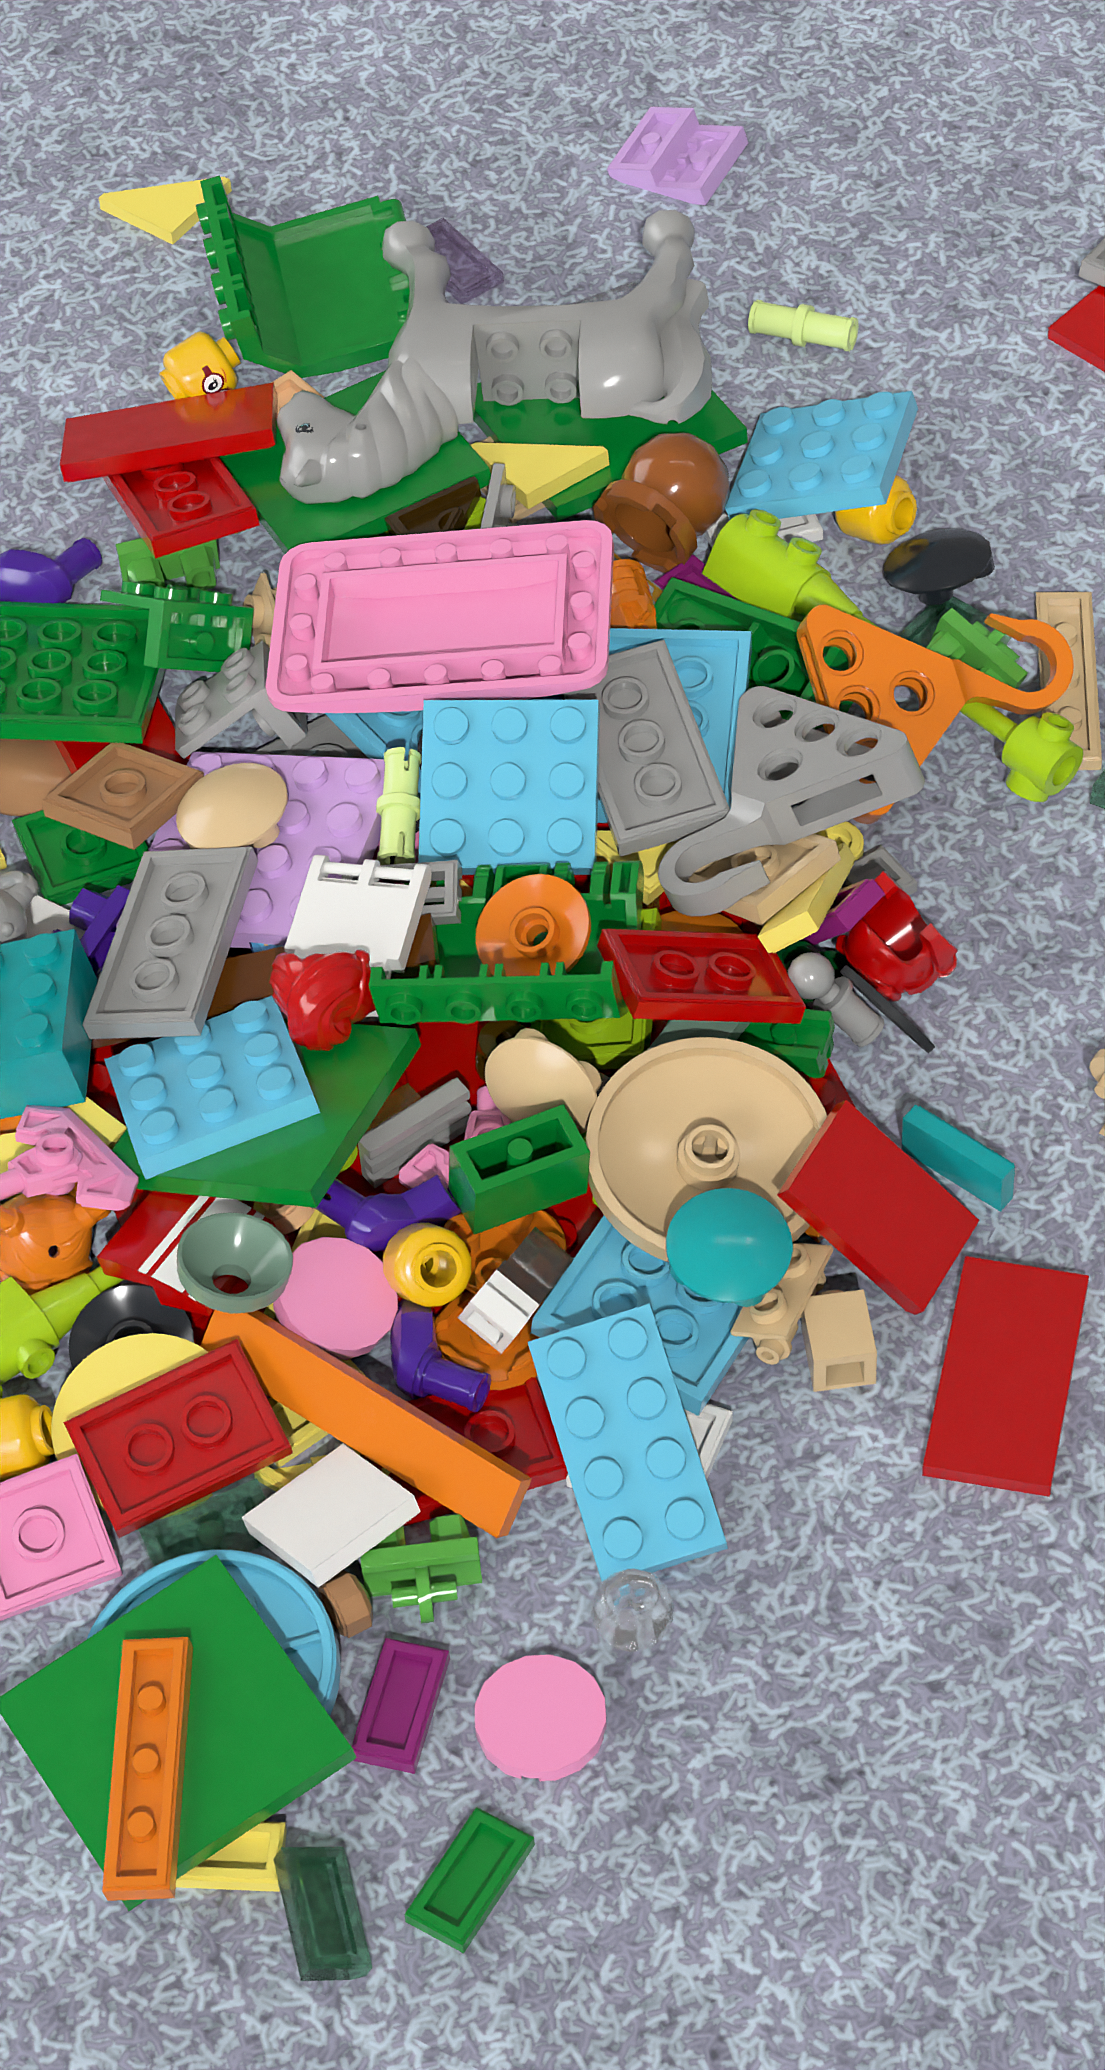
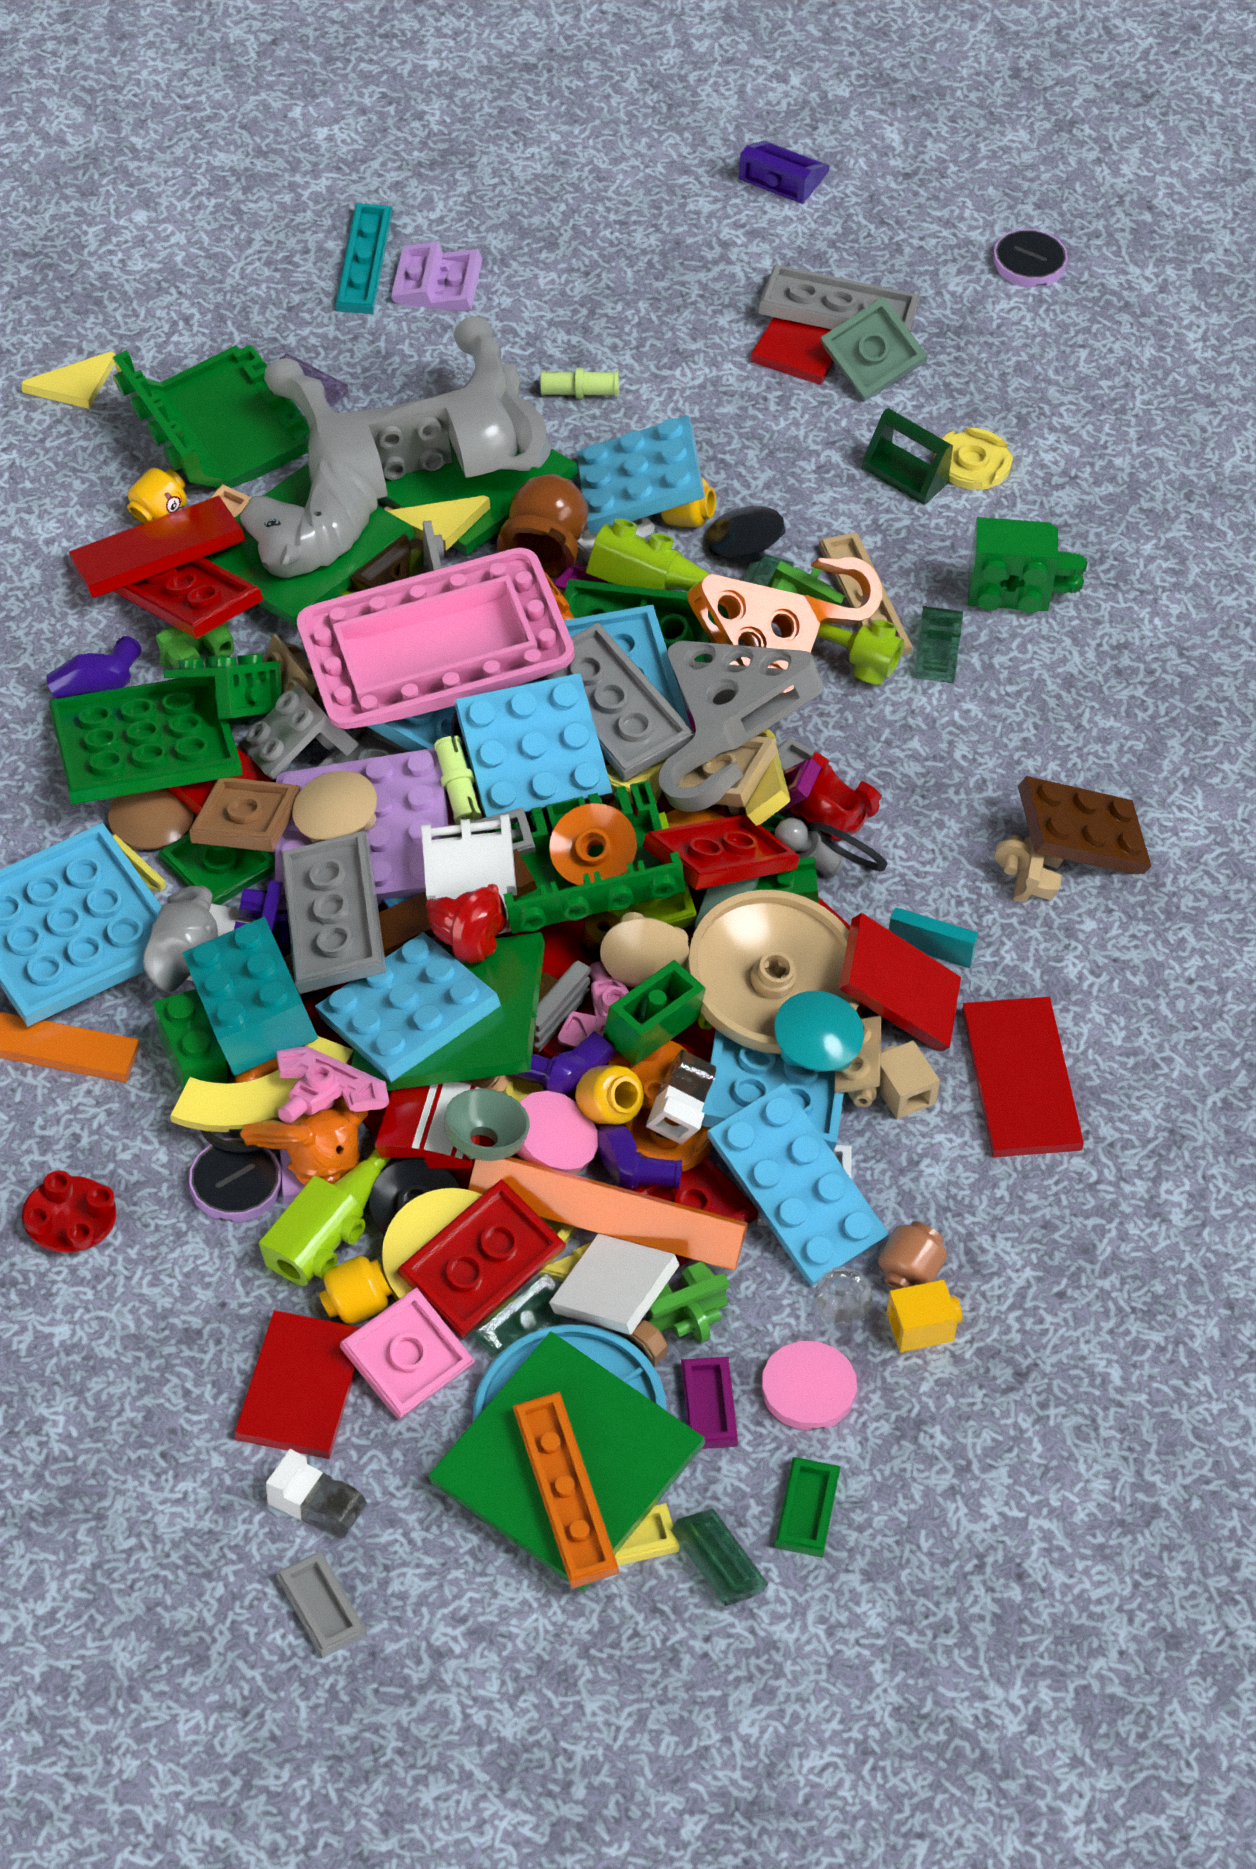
camera: 25 degrees left, 0 degrees up
(595, 115) = (364, 258): none -> teal tile
(728, 1664) = (923, 1315): none -> yellow brick
(746, 1582) = (912, 1255): none -> nougat head

